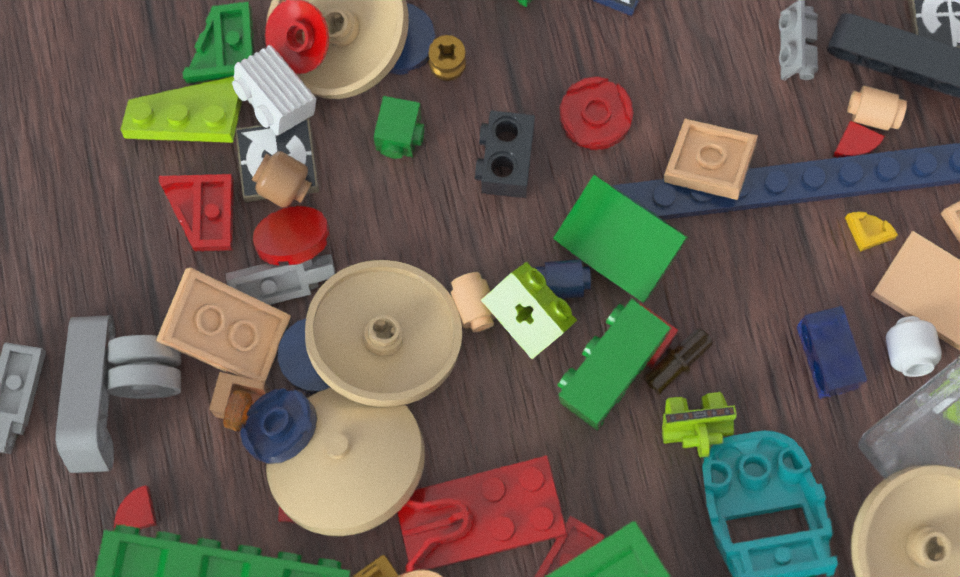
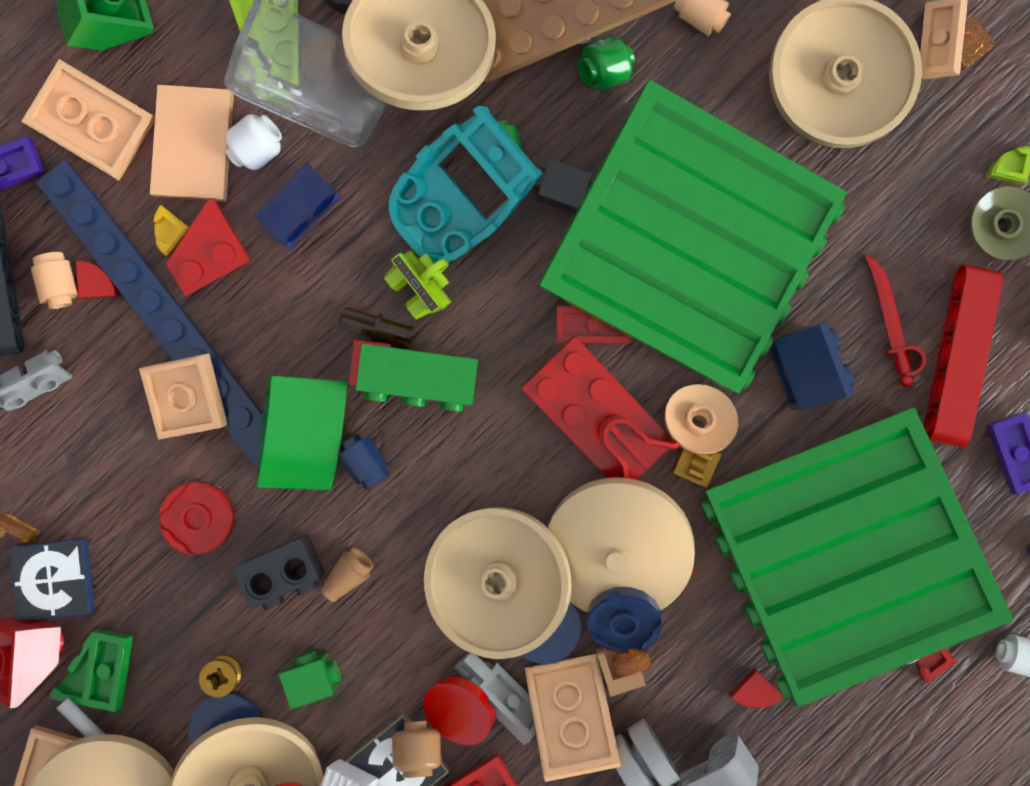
camera: 125 degrees left, 15 degrees up
(467, 295) = (425, 523): light nougat brick -> none
(470, 210) = (347, 573): none -> medium nougat cone
(511, 306) = (408, 472): brick -> none
(833, 251) = (206, 250): none -> red wing

